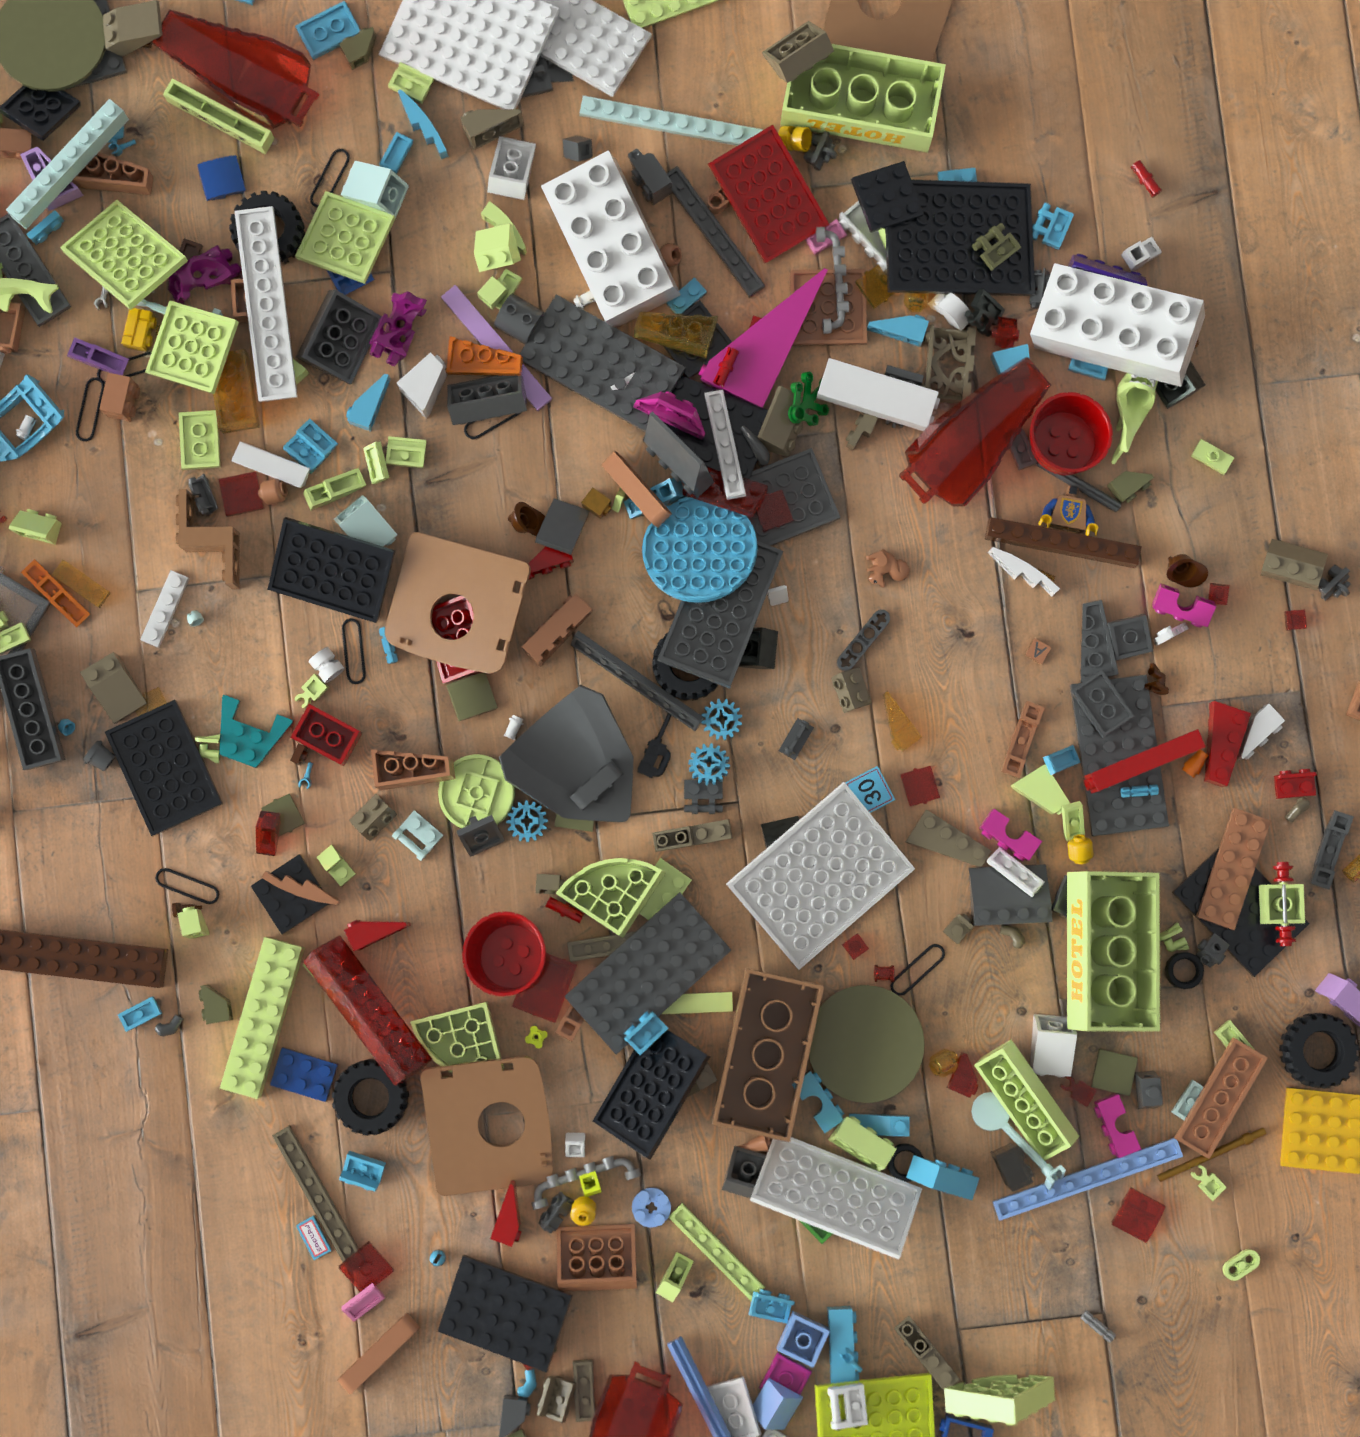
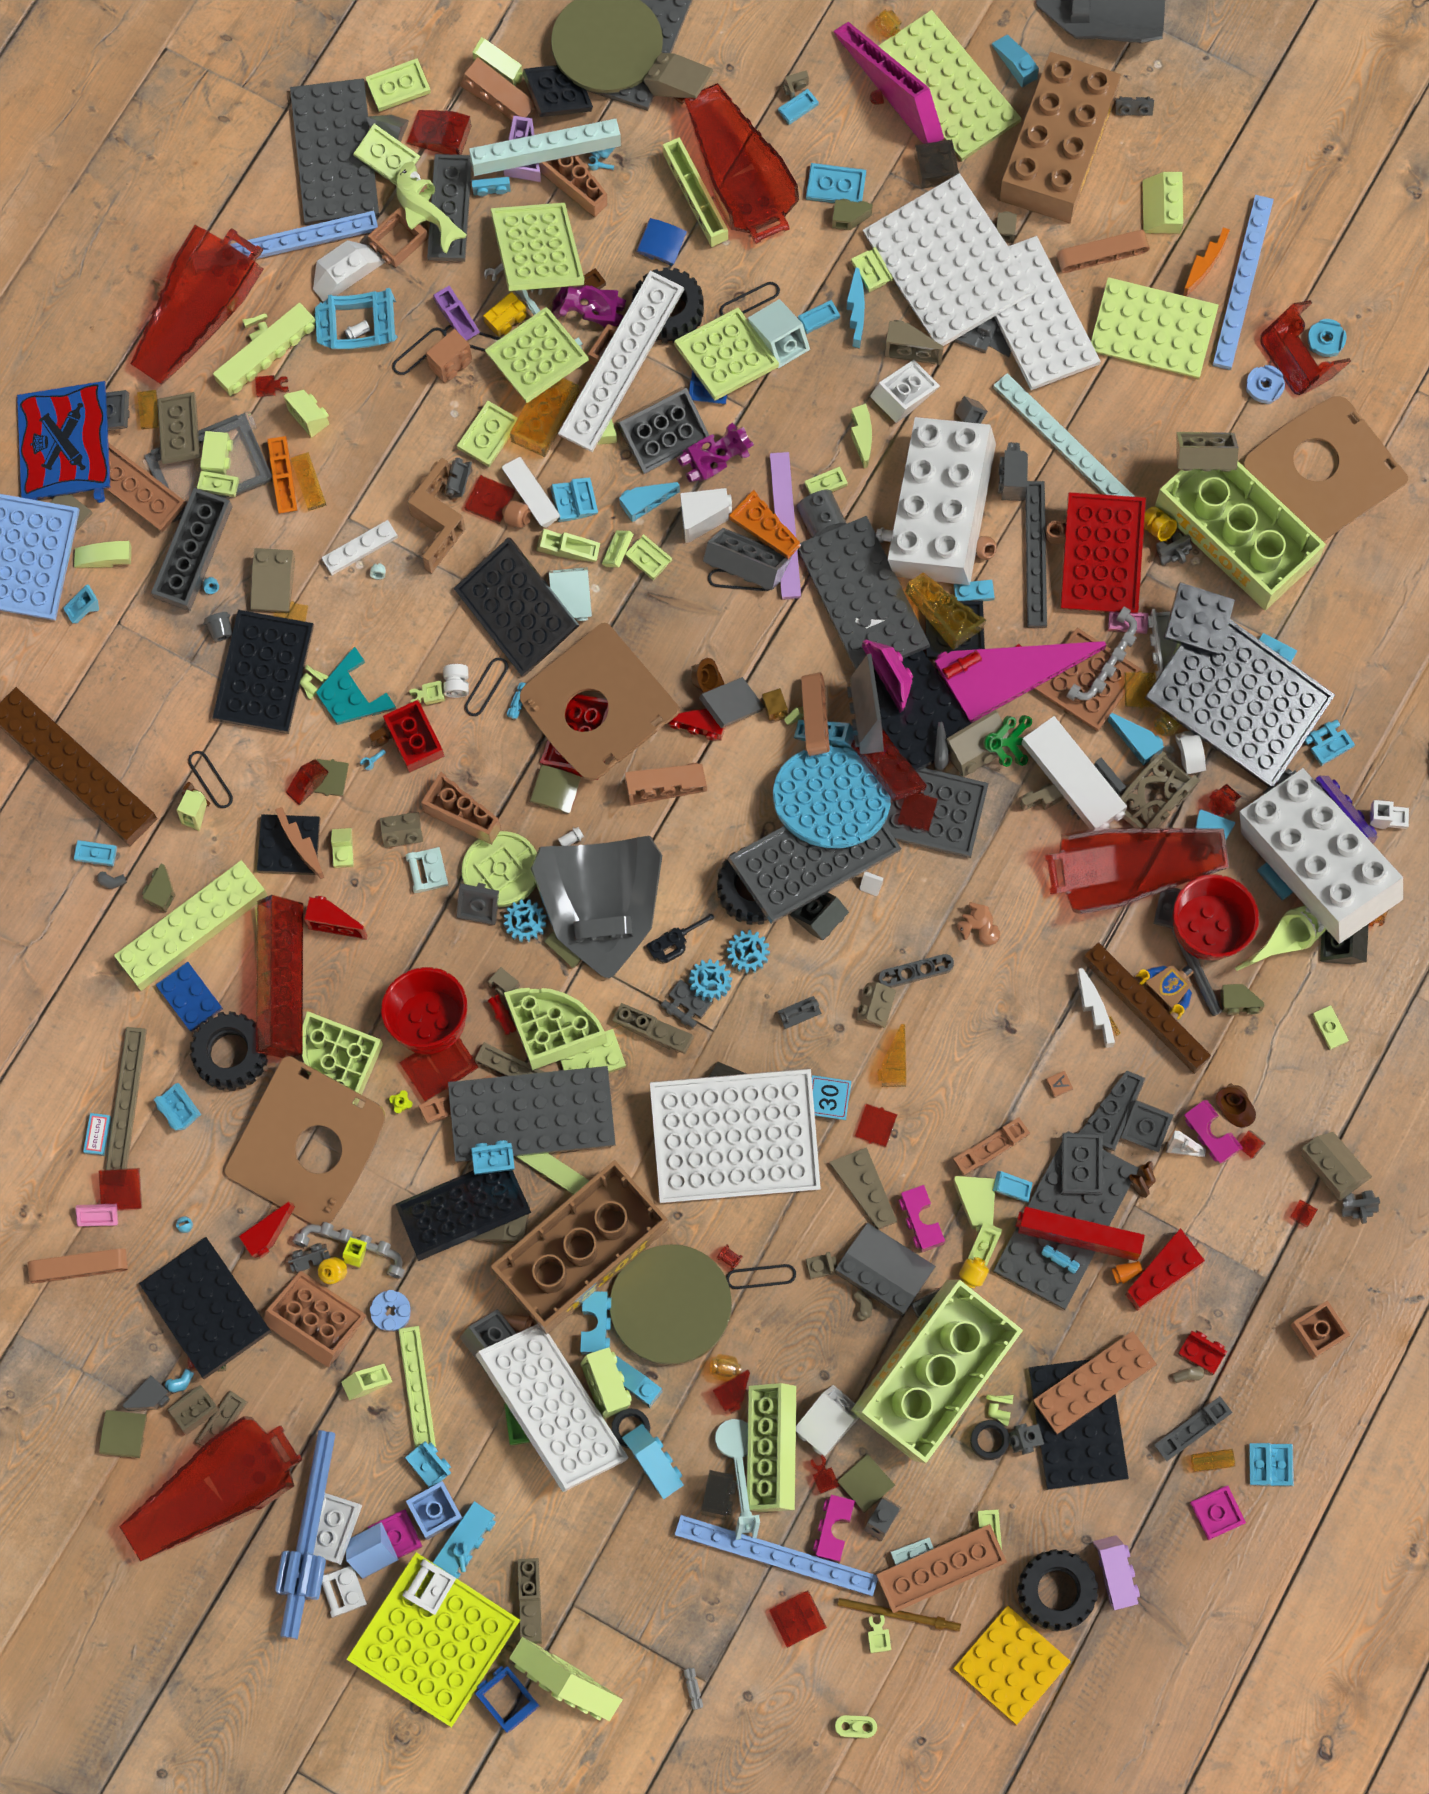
camera: 40 degrees right, 10 degrees down
(492, 292) = (814, 477): yellowish green brick -> none
(496, 247) = (843, 443): yellowish green slope -> none
(575, 1145) = (366, 1214): white slope -> none
(636, 681) = (700, 870): dark grey tile -> none
(725, 444) = (915, 727): white tile -> none
(855, 946) = (721, 1217): clear red plate -> none
(985, 307) = (1222, 769): pearl dark grey plate -> none
(1001, 250) = (1265, 729): olive plate -> none
(1015, 872) = (904, 1251): white tile -> none
(1260, 726) = (1208, 1281): white slope -> none
(1282, 904) = (1114, 1438): yellowish green brick -> none

